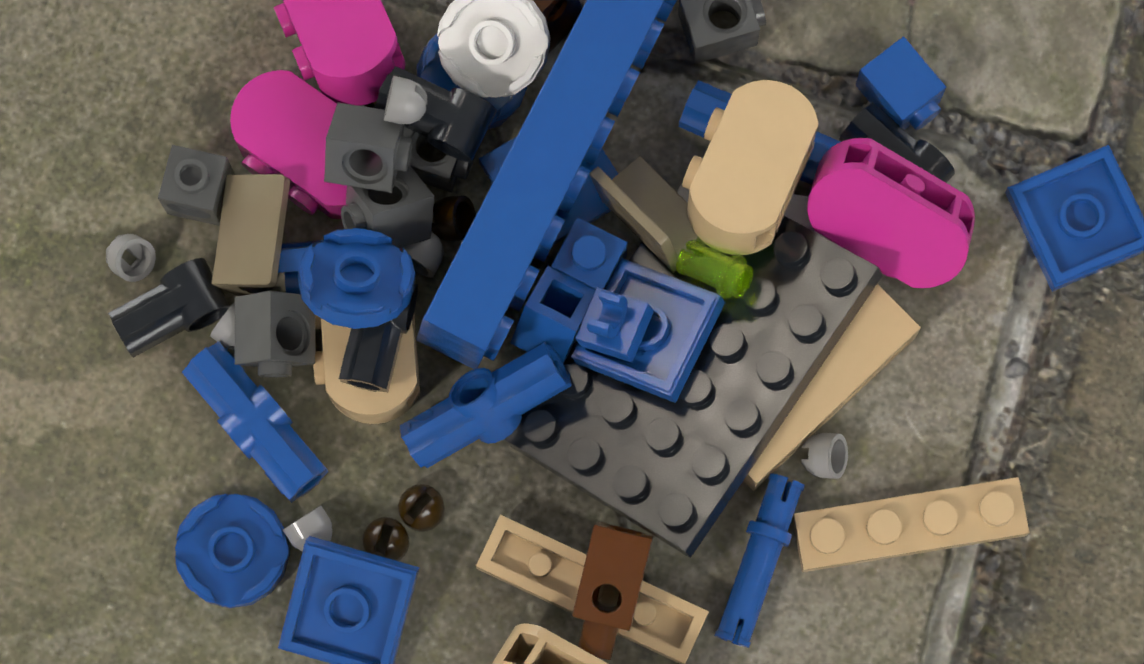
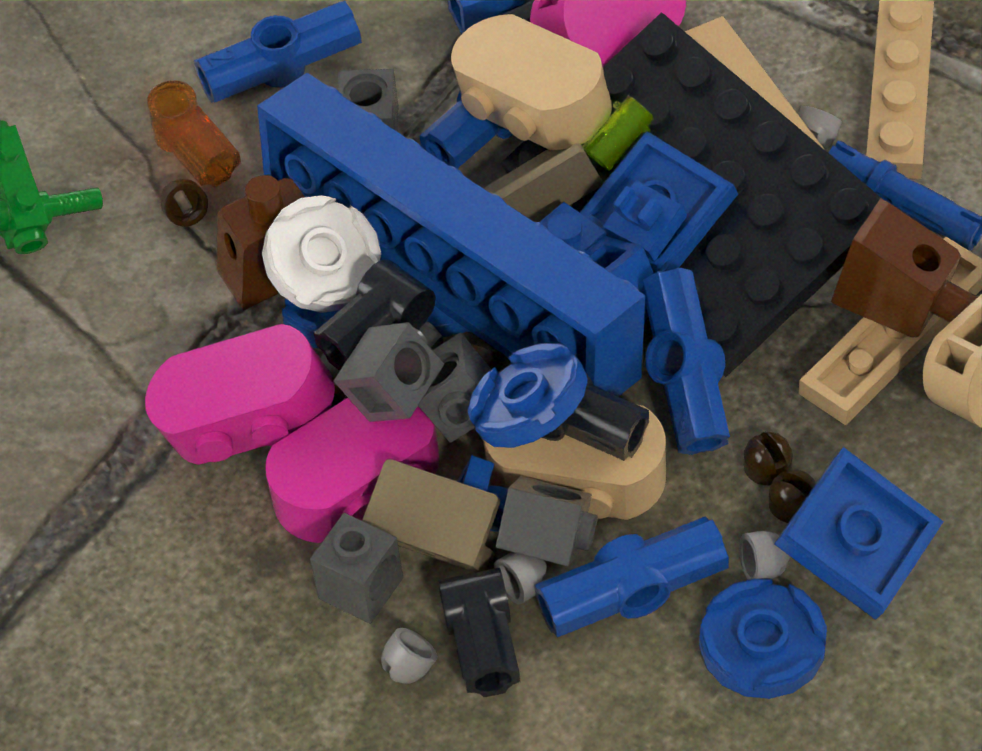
camera: 70 degrees left, 25 degrees down
(405, 101) = (359, 312): light grey hinge -> none

